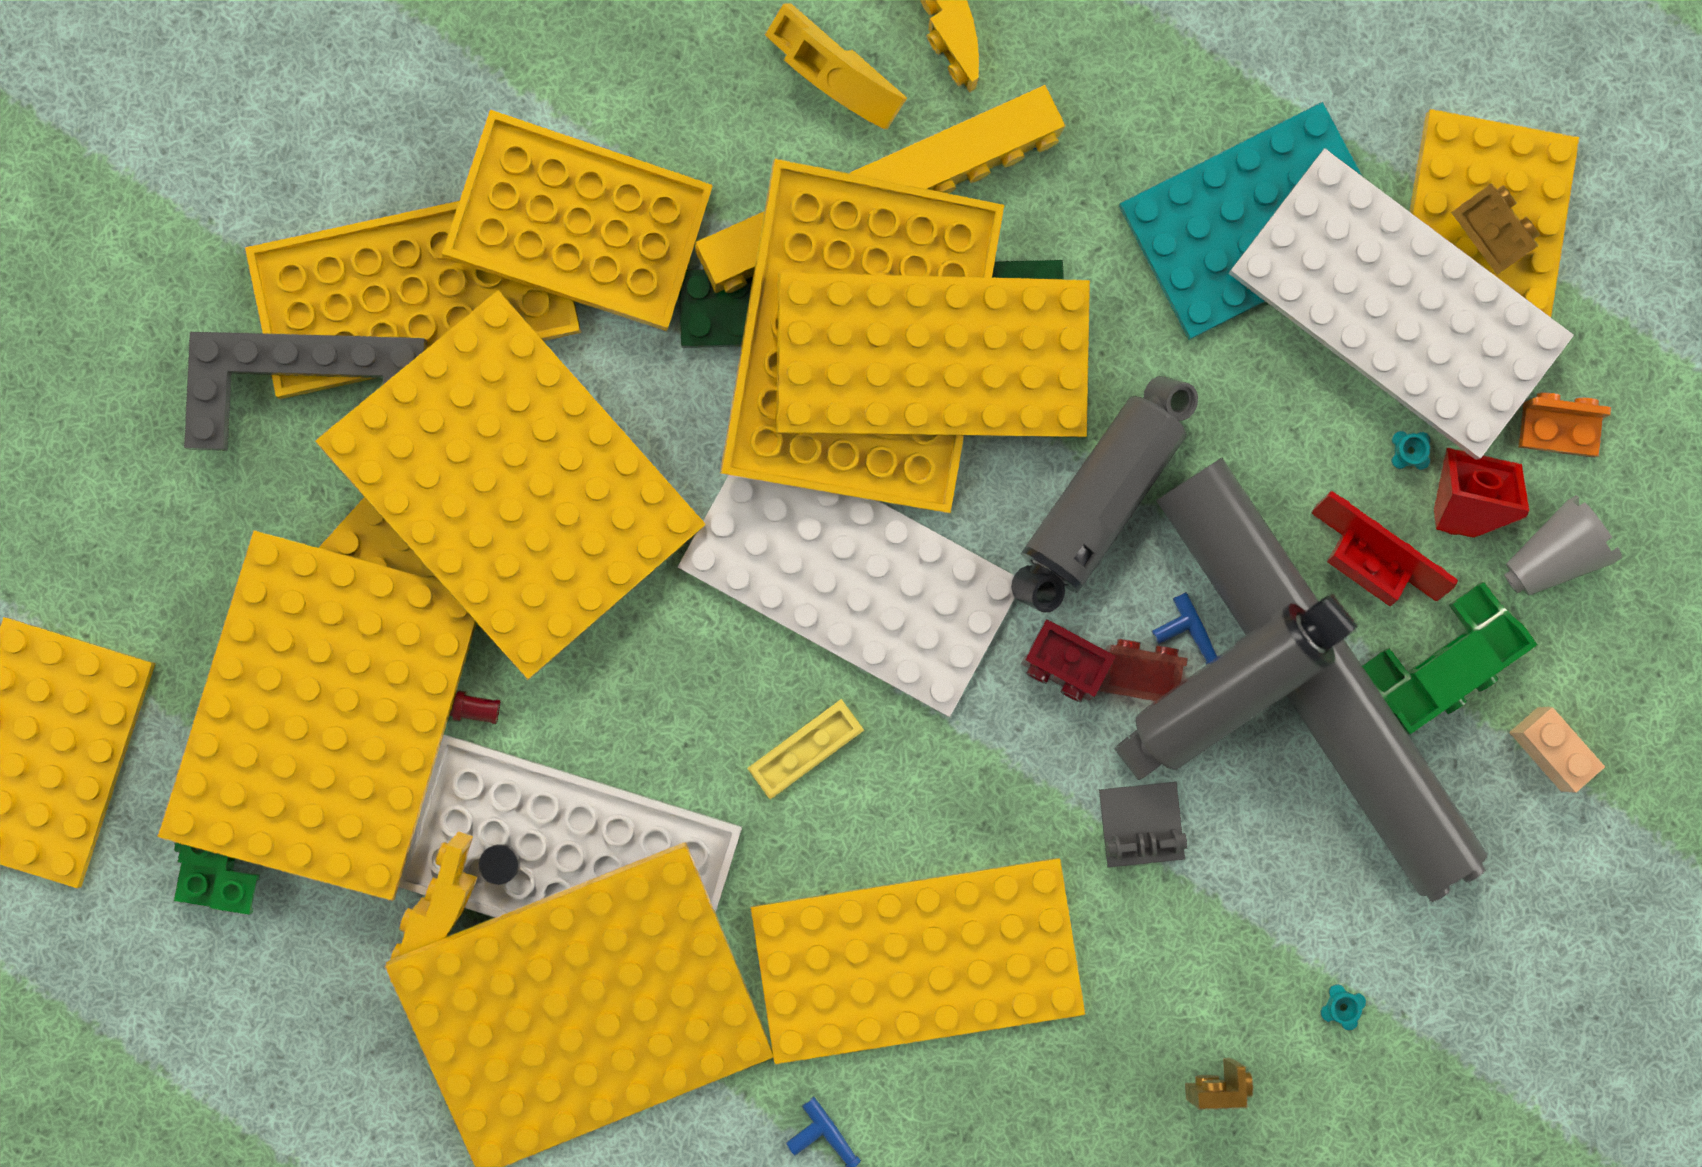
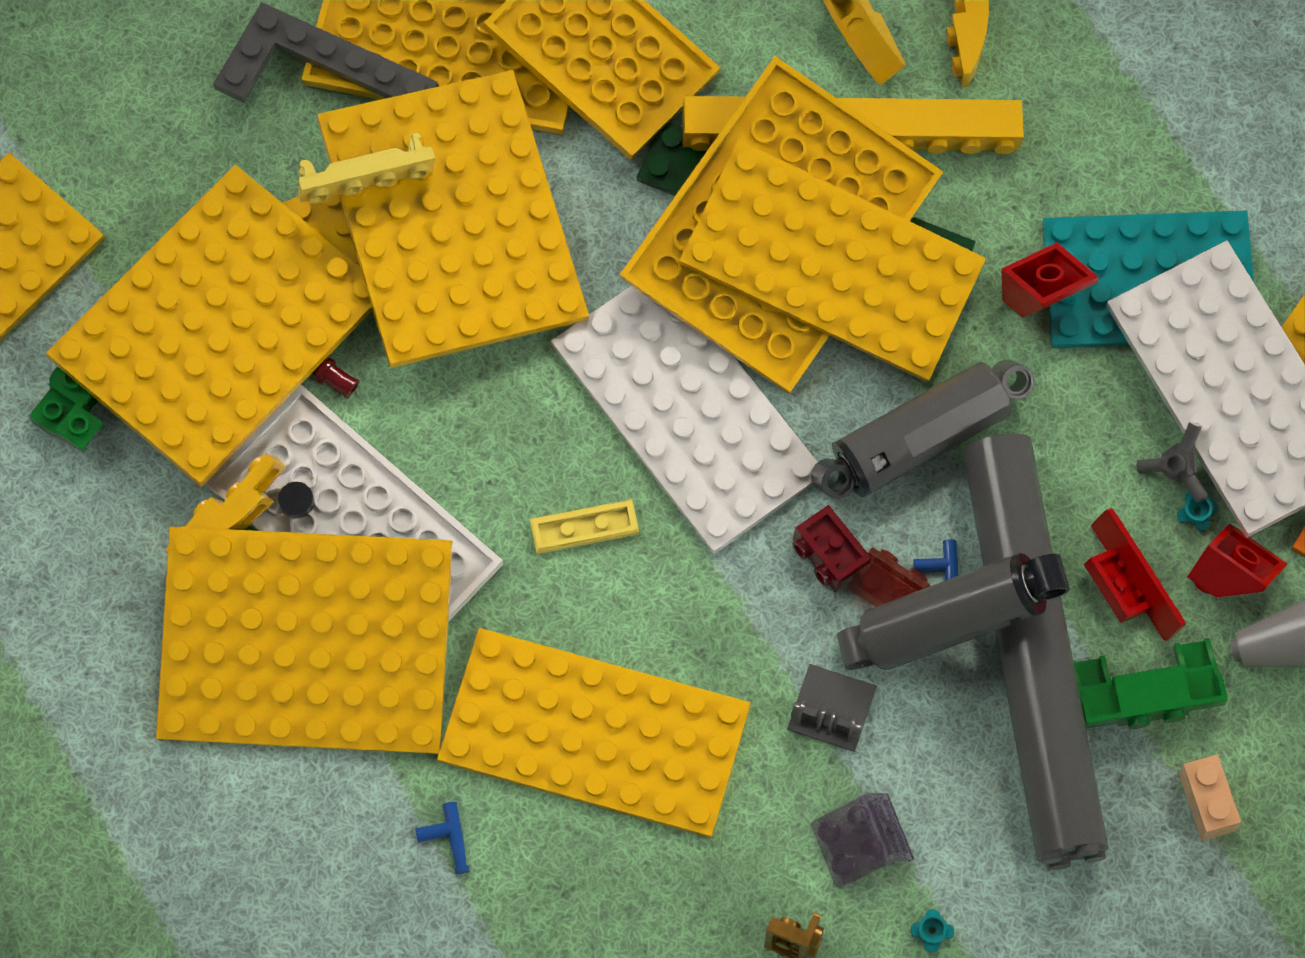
camera: 35 degrees right, 15 degrees down
(412, 477) = (364, 171): none -> light yellow piece
(1160, 276) = (1043, 279): none -> red slope
(1235, 949) = (861, 838): none -> clear purple bracket
(1377, 412) = (1179, 463): none -> dark grey piece

